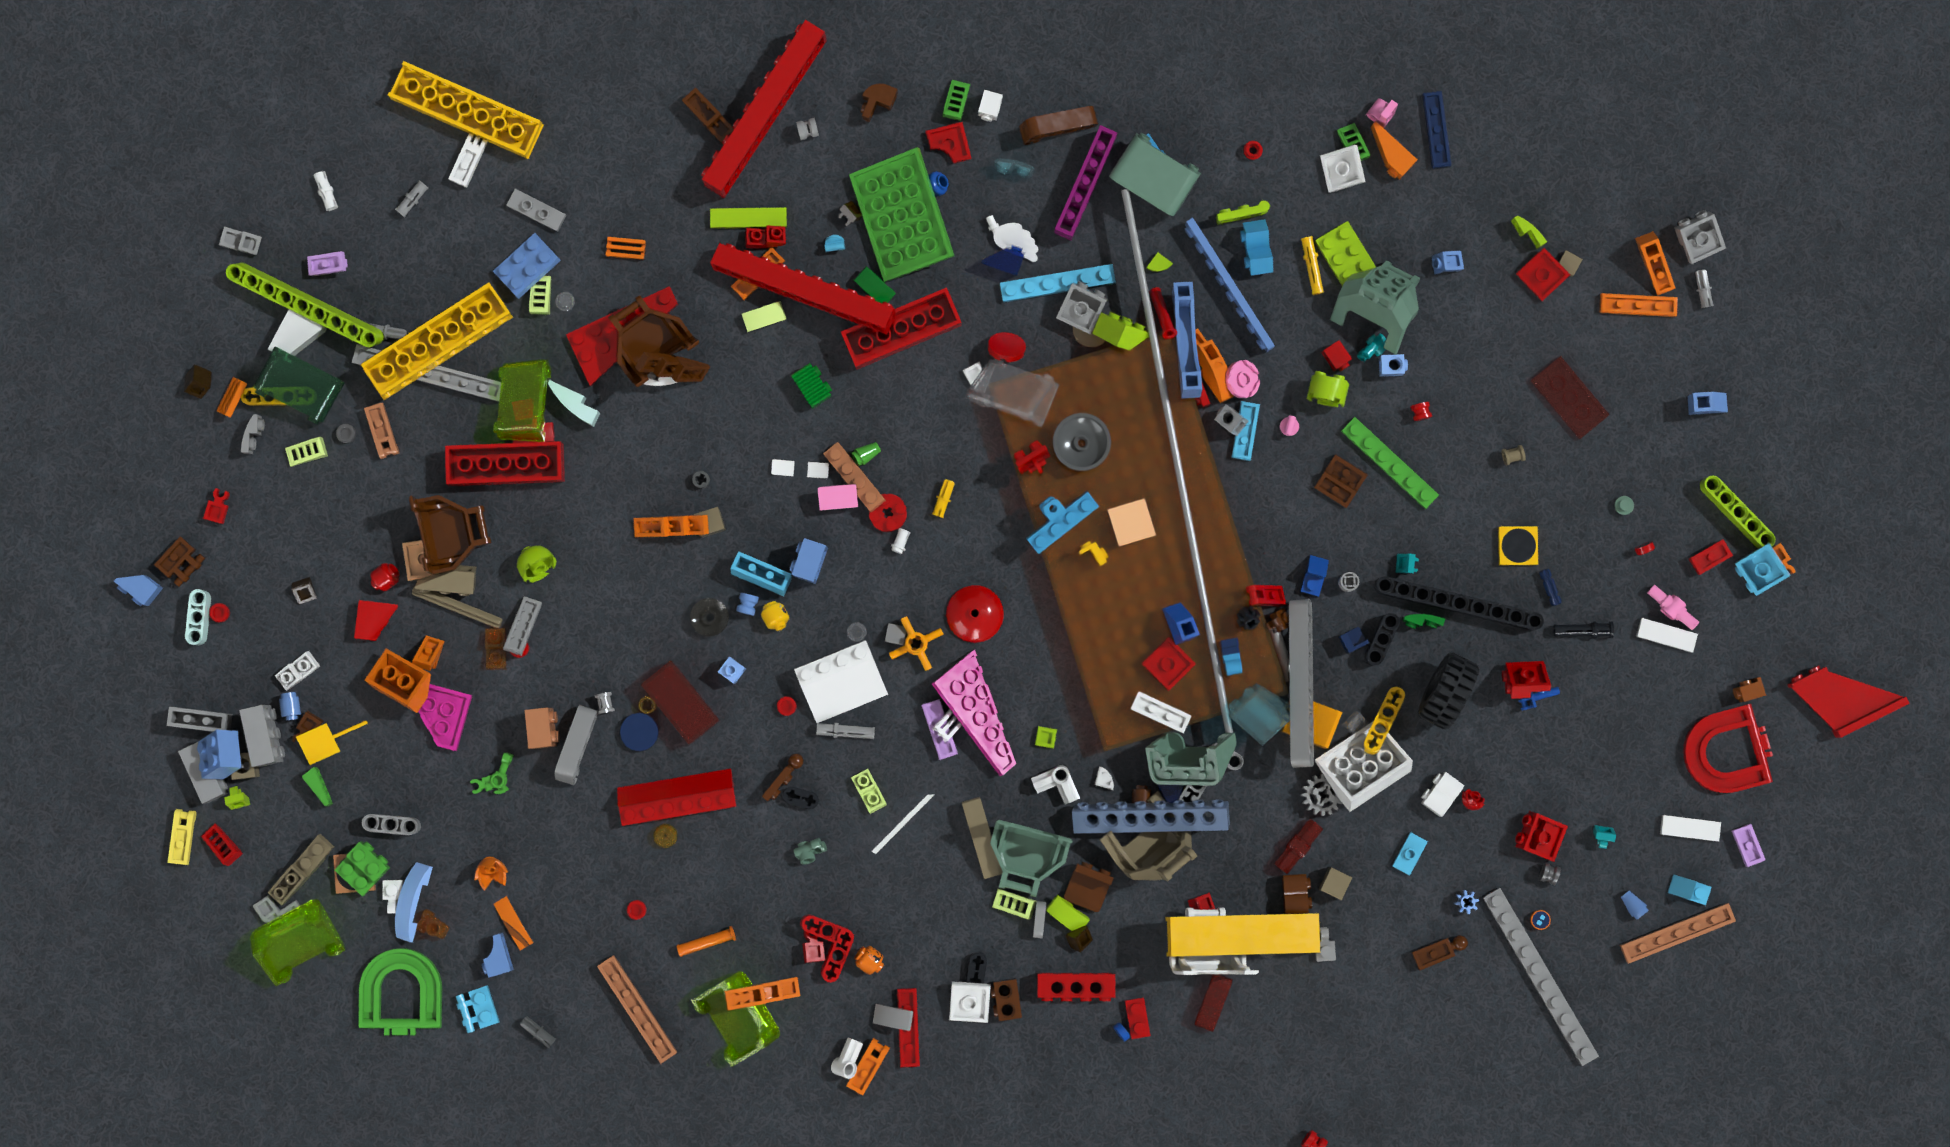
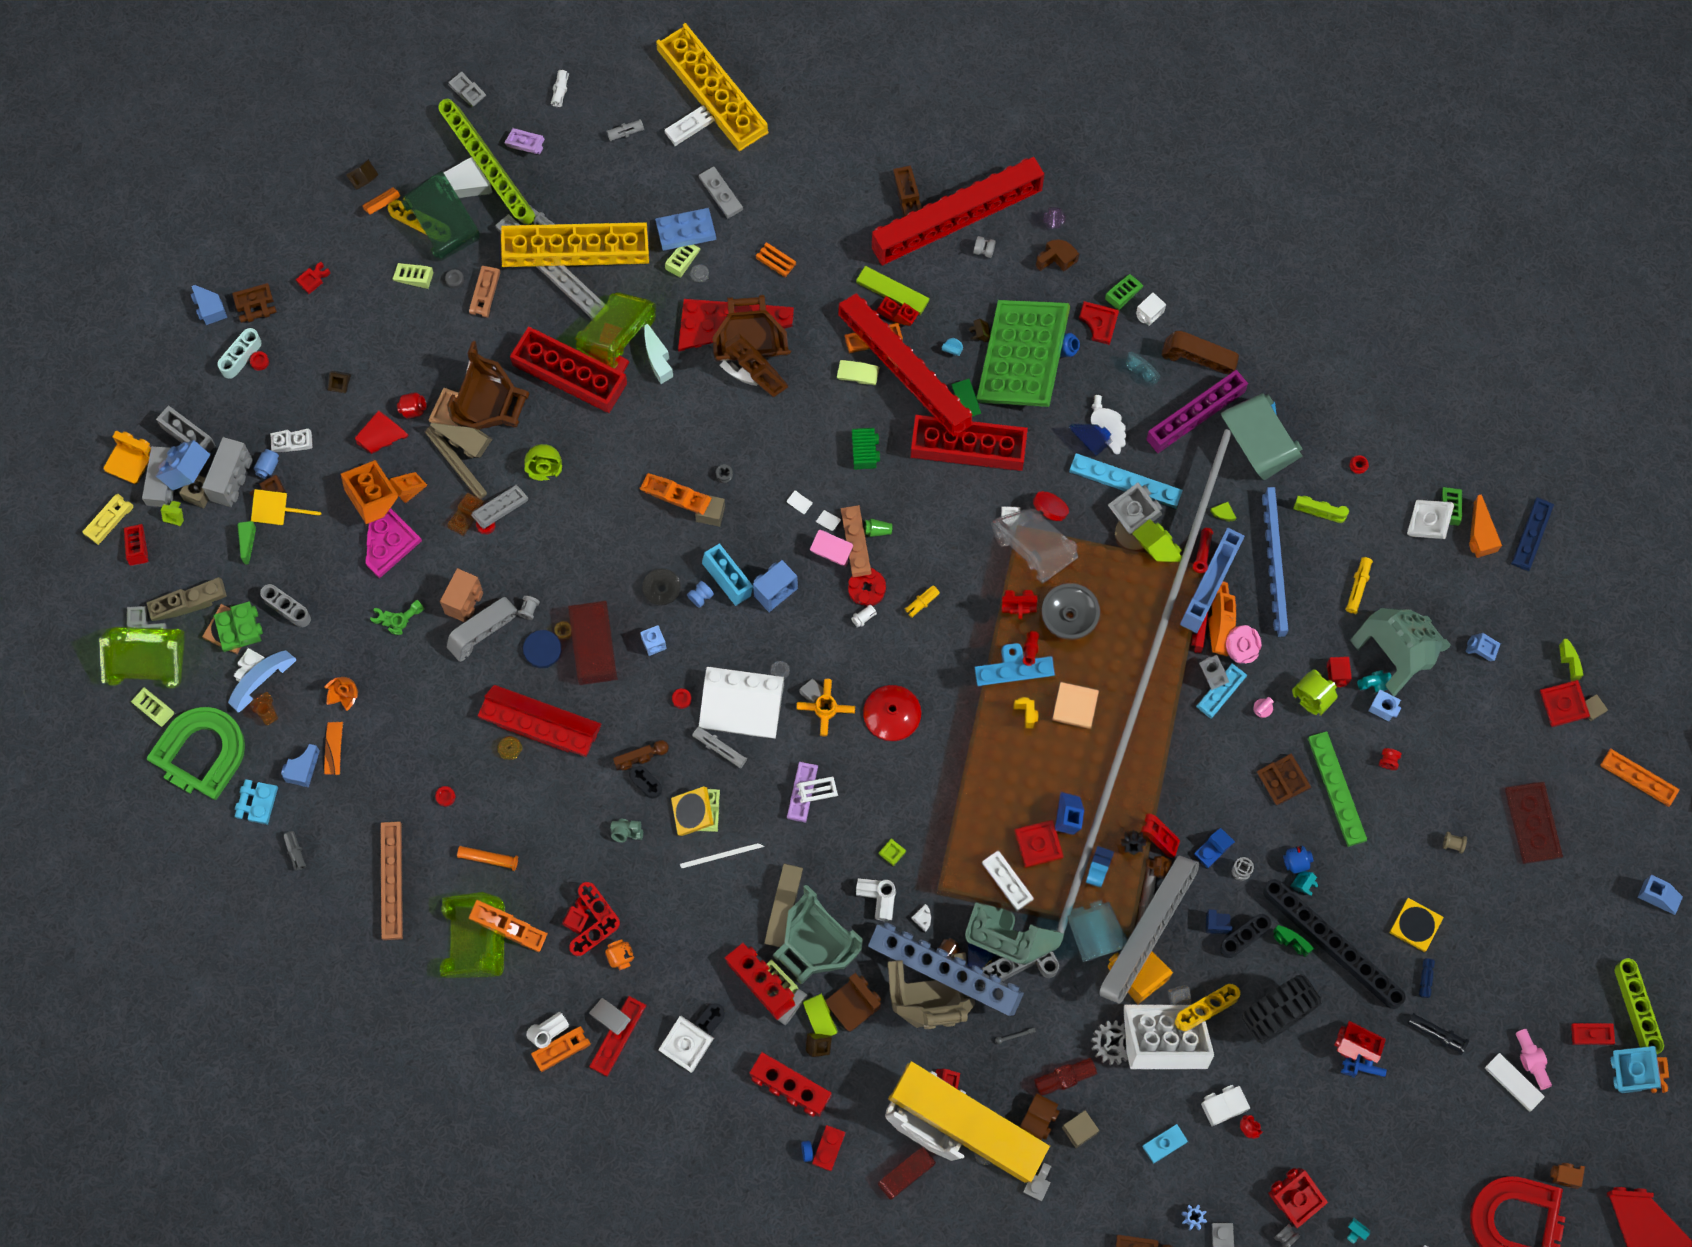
camera: 30 degrees right, 15 degrees down
(163, 772) = (128, 457): none -> light orange bracket
(253, 428) = (381, 233): light grey slope -> none
(345, 981) = (161, 715): none -> yellowish green slope
(775, 615) = (718, 616): yellow head -> none
(854, 64) = (1054, 217): none -> clear purple gear
(856, 802) = (692, 811): none -> tile
(972, 905) = (777, 1004): none -> red brick
(974, 707) = (844, 787): wing -> none
(1011, 998) = (725, 1062): reddish brown brick -> none
(1065, 495) = (1030, 648): none -> red pin
(1226, 846) = (999, 1040): none -> dark grey hinge
(1257, 248) = (1318, 543): dark azure brick -> none
(1344, 252) = (1393, 587): lime plate -> none
(1382, 111) = (1492, 492): bright pink plate -> none
(1390, 546) = (1298, 859): none -> blue head
(1624, 505) = (1534, 943): sand green plate -> none
(1644, 548) = (1534, 991): red tile -> none
(1655, 262) = (1674, 748): orange slope -> none

